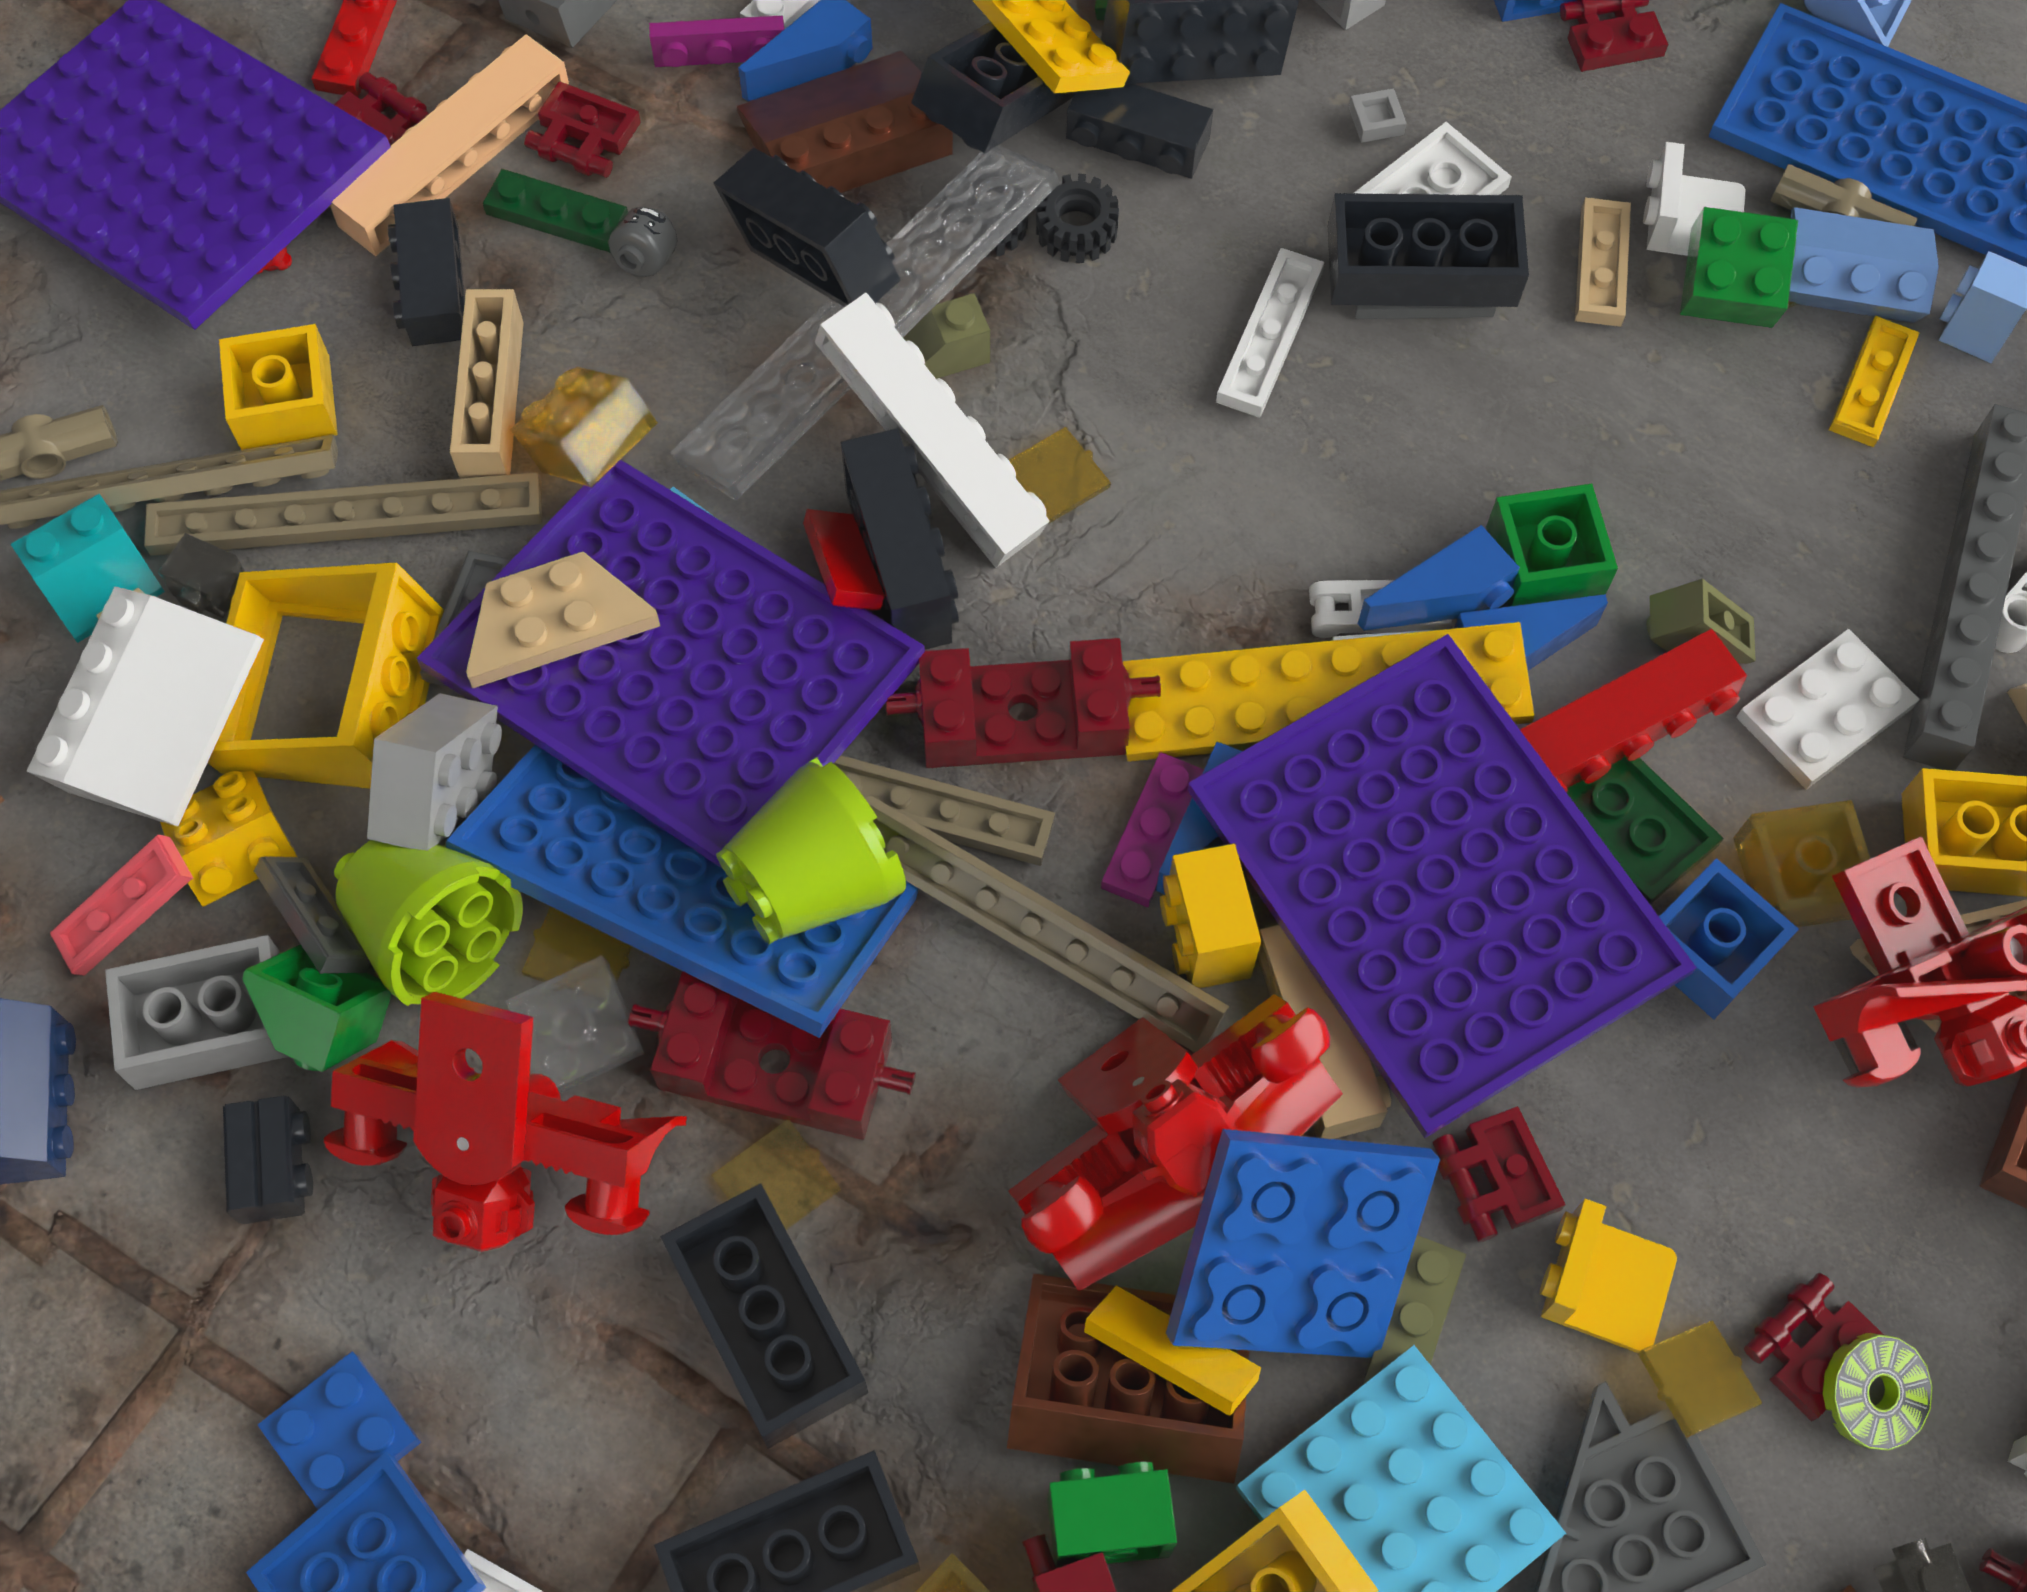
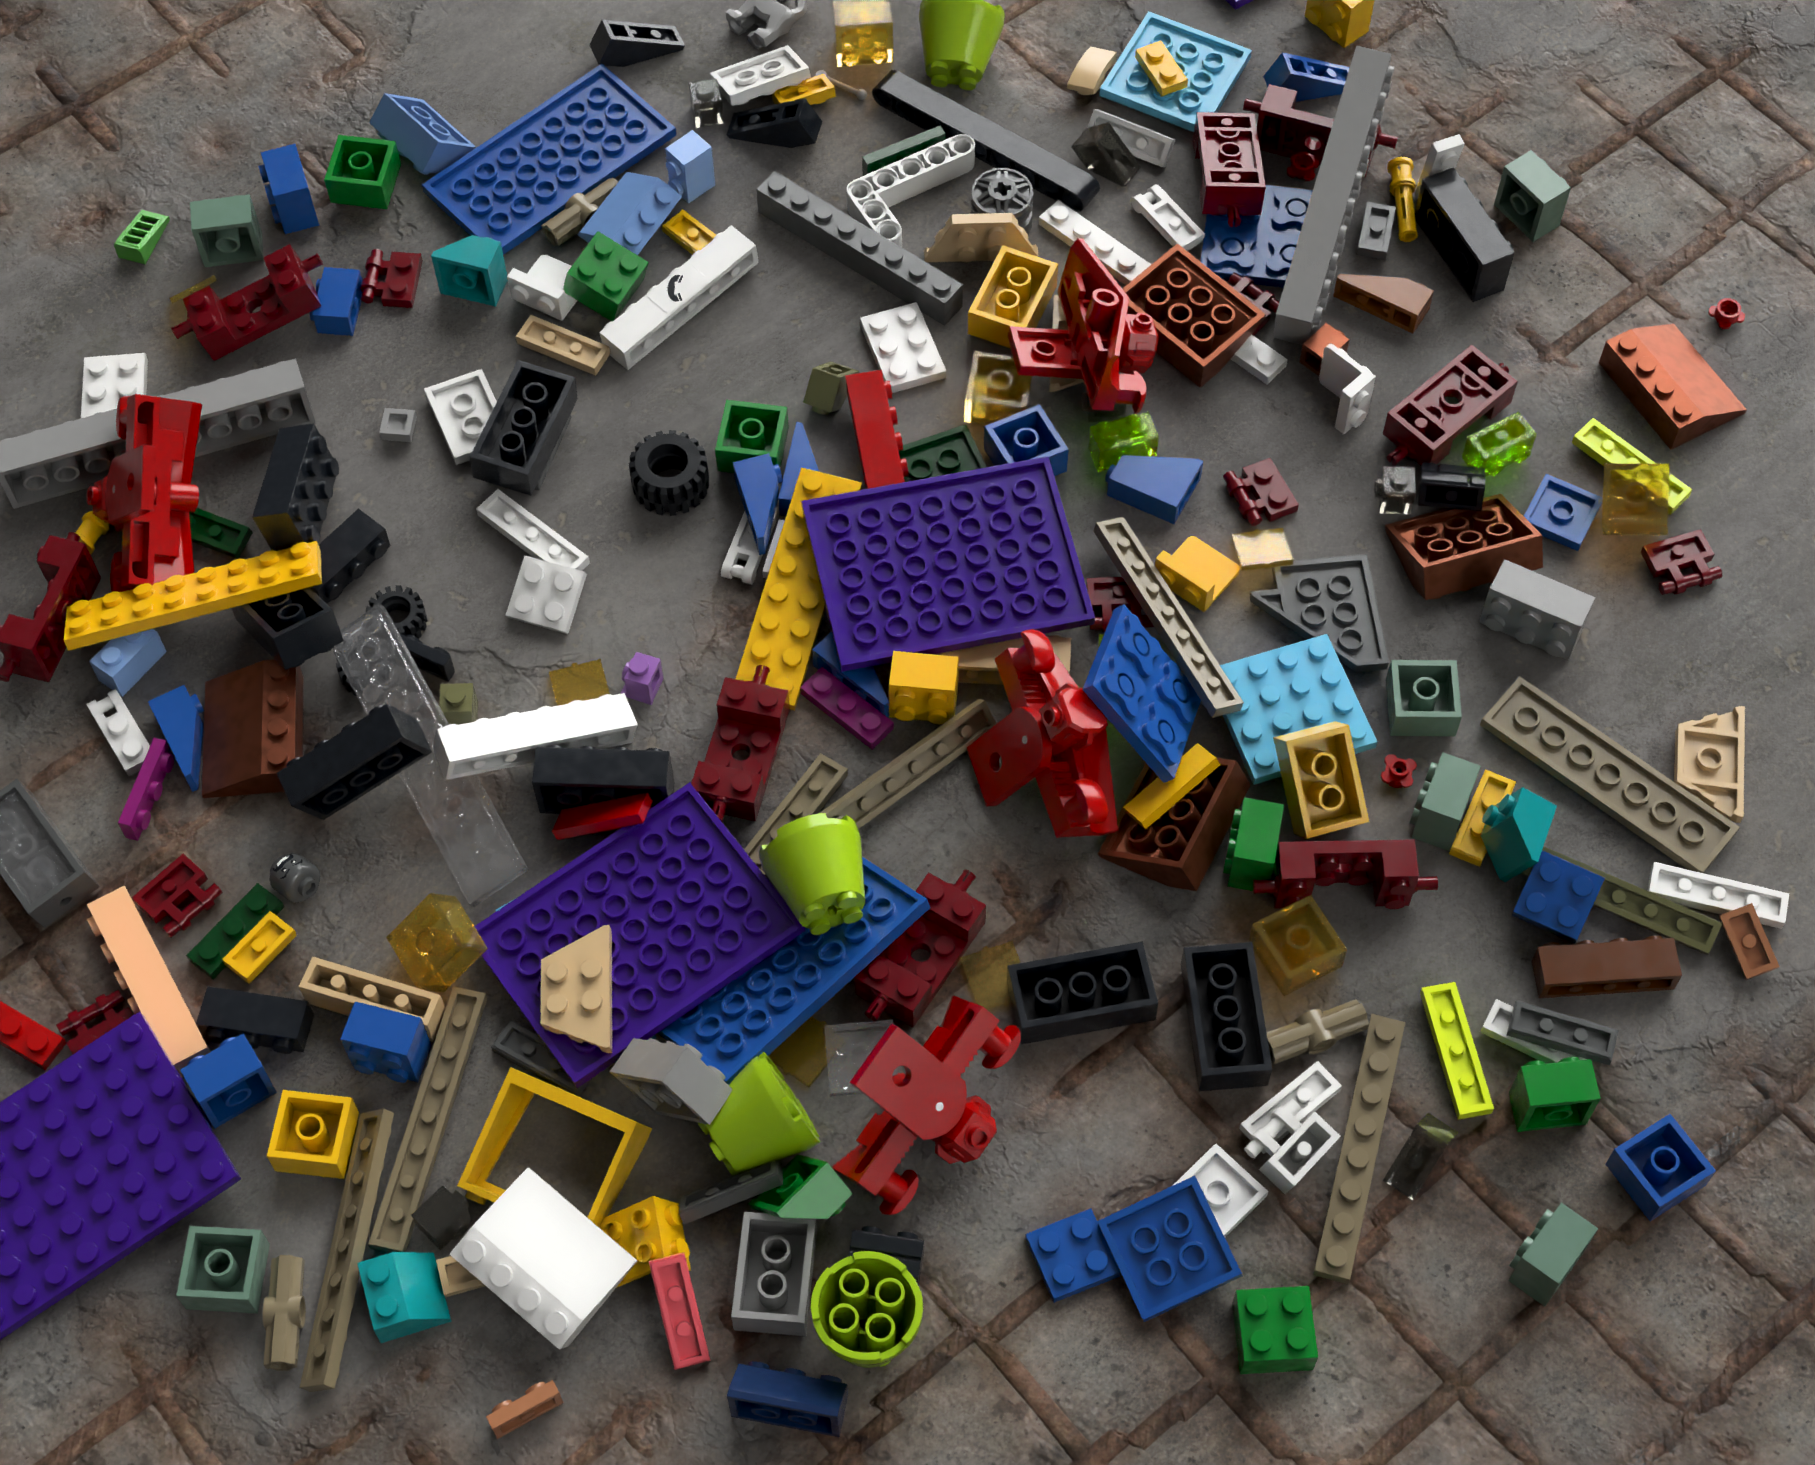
camera: 70 degrees left, 5 degrees down
(71, 356) = (223, 1269): none -> sand green brick
(124, 1145) = (868, 1293): none -> lime cone
(324, 265) = (228, 1080): none -> blue brick
(418, 415) = (386, 1042): none -> blue brick
(536, 241) = (259, 947): none -> yellow plate
(1024, 283) = (429, 659): none -> black plate
(1091, 529) = (642, 678): none -> medium lavender brick
(1180, 378) = (546, 594): none -> white plate
(1455, 430) = (663, 453): none -> black tyre
(1480, 1254) = (1168, 617): none -> dark tan plate
(1664, 101) = (471, 269): none -> teal slope
(1748, 1165) = (1154, 483): none -> slope
(1758, 375) = (679, 297): none -> white brick
(1804, 1087) = (1126, 436): none -> clear neon green brick
(1905, 1397) = (1288, 458): tile -> none

